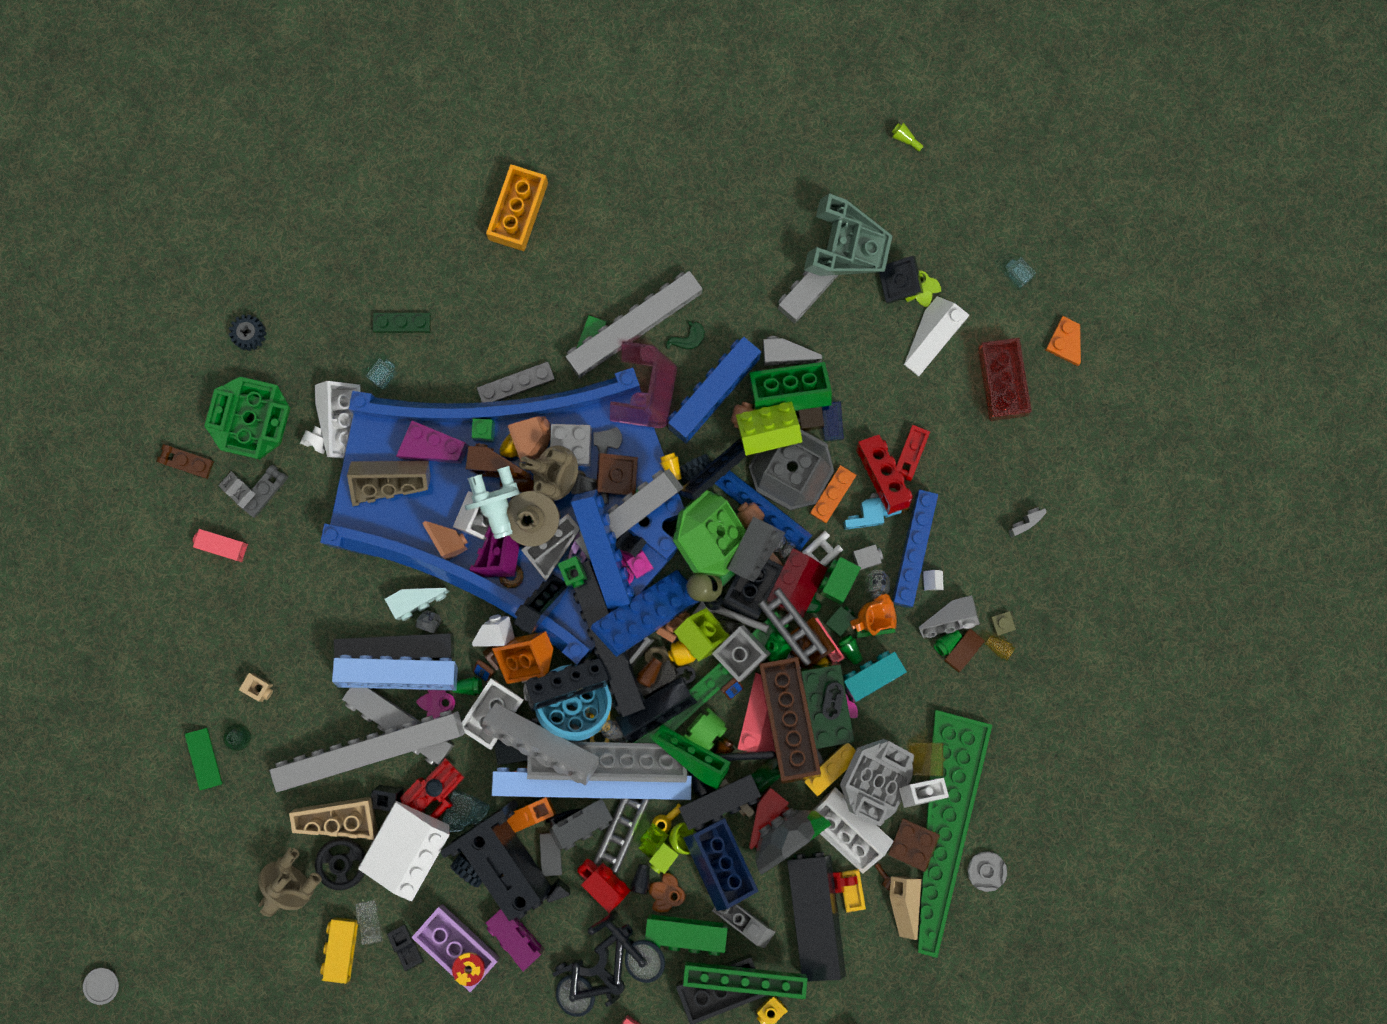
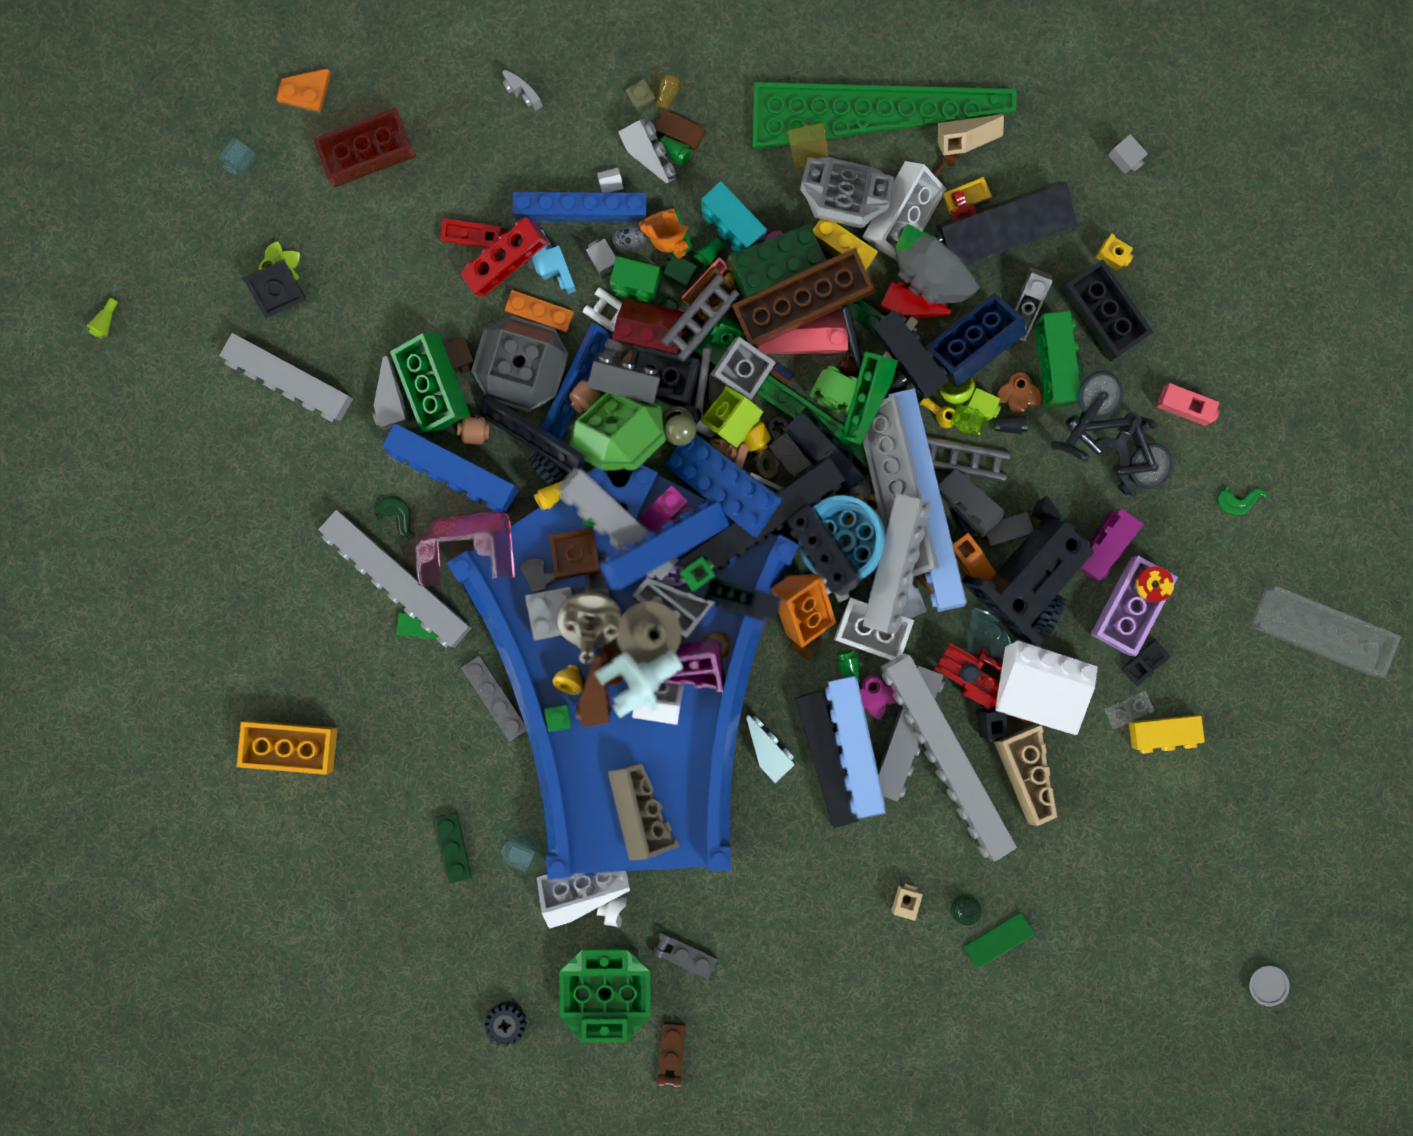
camera: 105 degrees left, 5 degrees up
(219, 545) = (758, 988): coral brick -> none
(237, 489) = (690, 985): light grey slope -> none
(285, 885) = (1114, 809): dark tan piece -> none
(324, 856) = (1071, 776): black wheel -> none
(428, 621) = (788, 727): dark grey rock -> none
(430, 445) = (589, 773): magenta wedge -> none
(446, 540) = (694, 727): nougat slope -> none
(483, 670) = (827, 652): slope -> none
(495, 632) = (784, 648): white slope -> none
(531, 436) = (554, 659): nougat slope -> none
(602, 884) = (1028, 463): red brick -> none
(630, 544) = (651, 515): black slope -> none
(649, 673) = (790, 464): reddish brown cone -> none
(745, 980) = (1094, 281): green brick -> none
(769, 428) = (482, 394): lime brick -> none
(828, 699) = (771, 258): black beam -> none
(833, 422) = (457, 328): clear blue tile -> none
(854, 241) = (242, 348): sand green wedge -> none
(914, 844) = (903, 138): reddish brown plate -> none
(923, 792) = (846, 139): white slope -> none
(936, 328) = (324, 237): white wedge -> none
(982, 867) = (905, 57): light grey tile -> none

